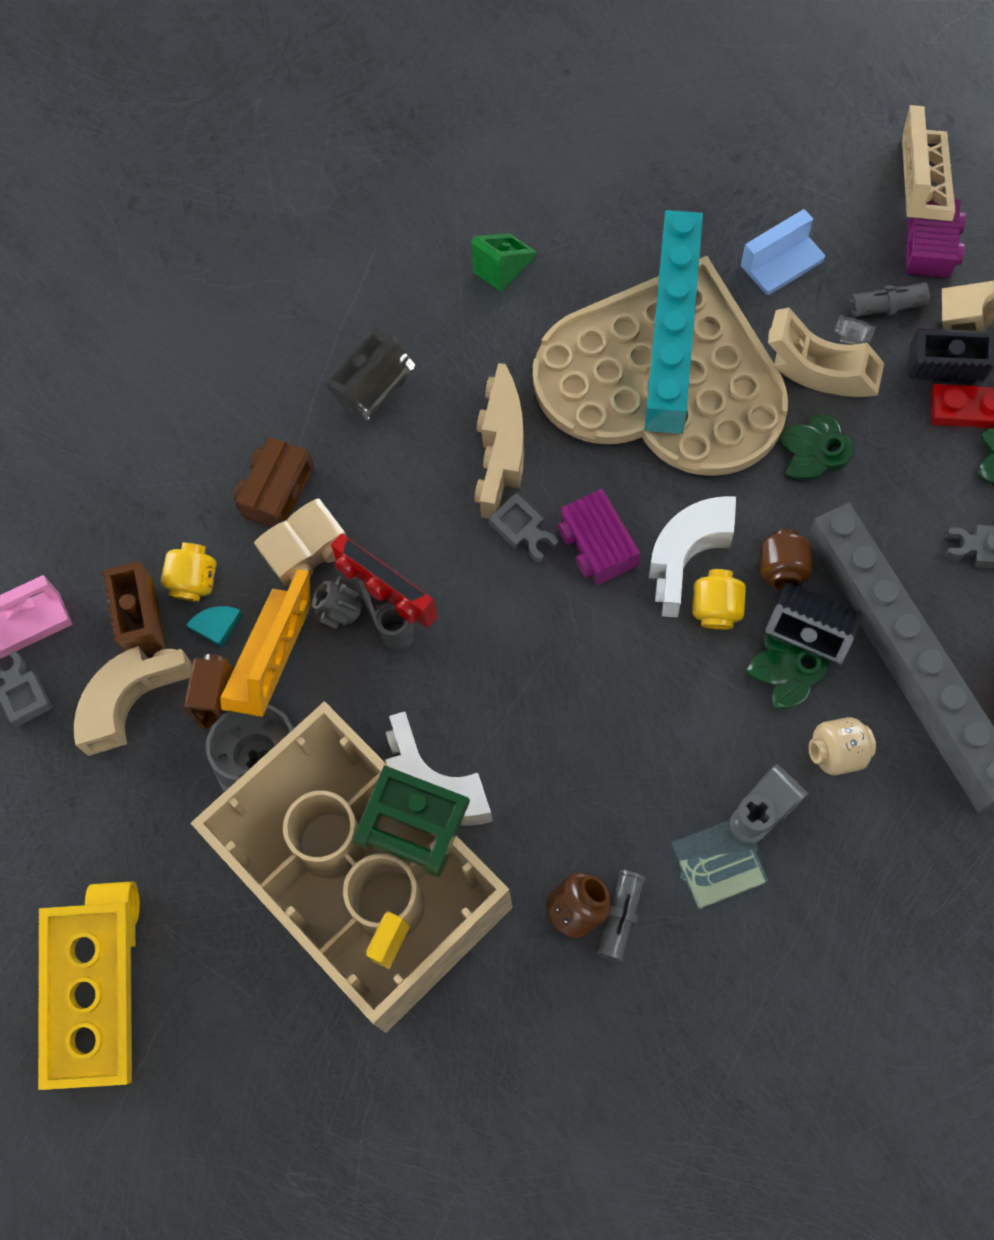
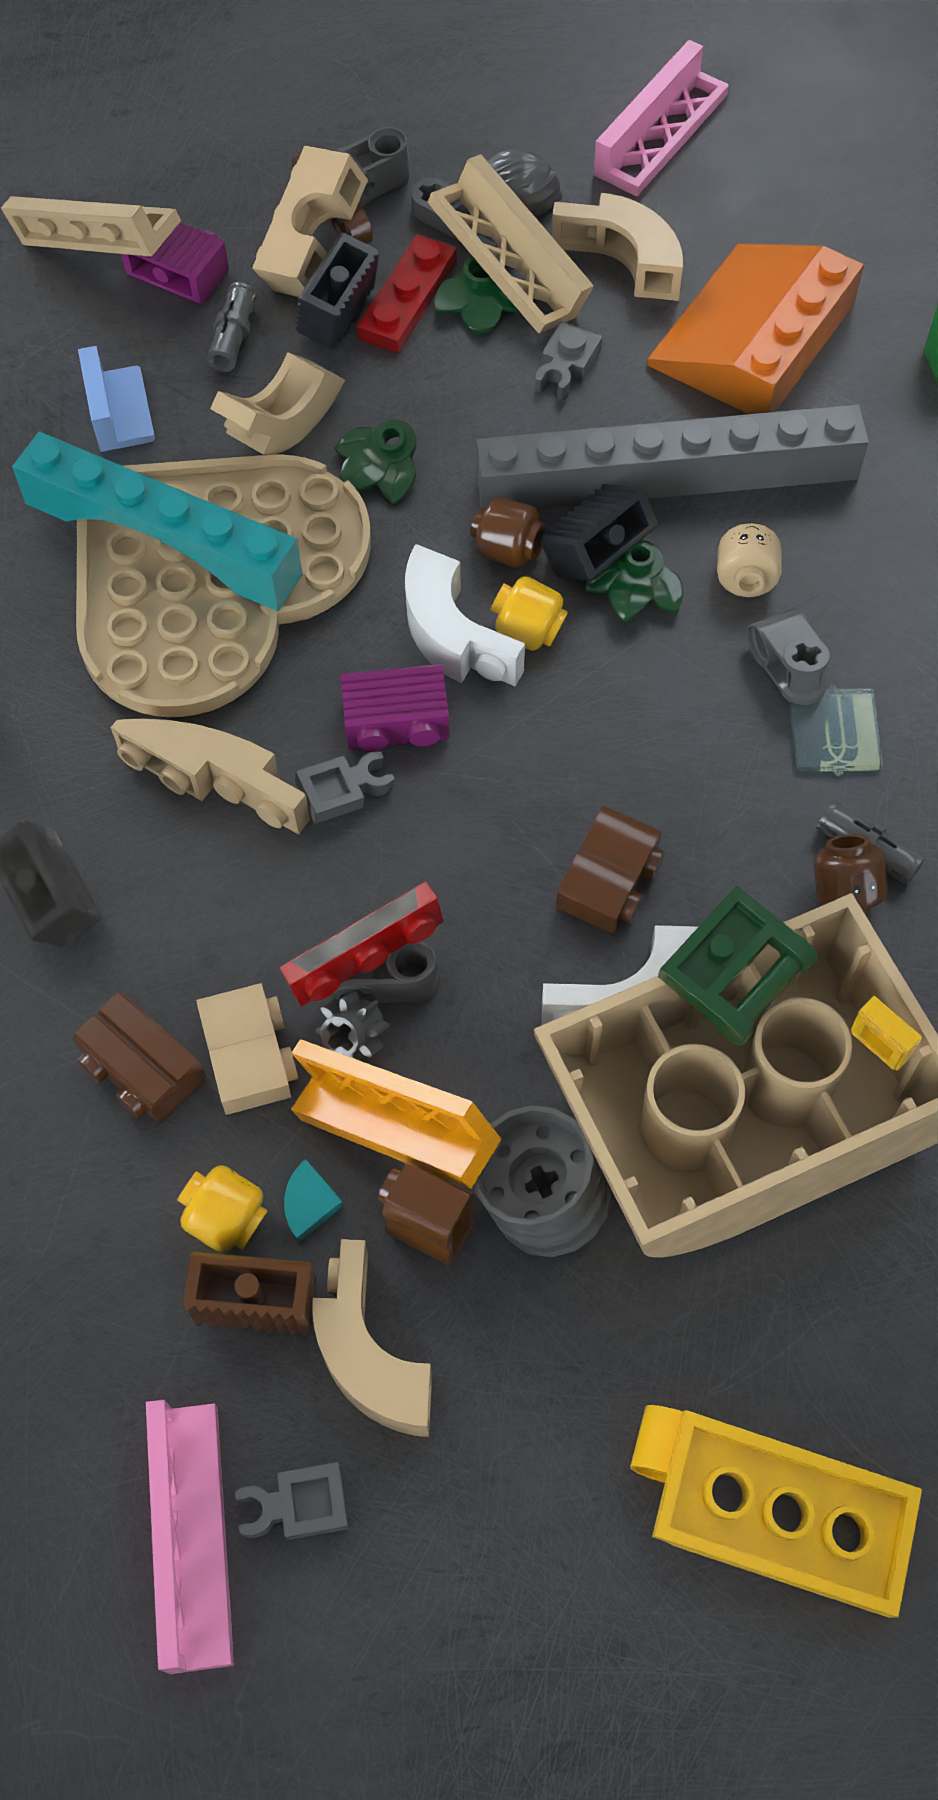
camera: 75 degrees left, 5 degrees down
(522, 730) = (610, 869): none -> reddish brown brick
(854, 330) = (256, 368): clear plate -> none

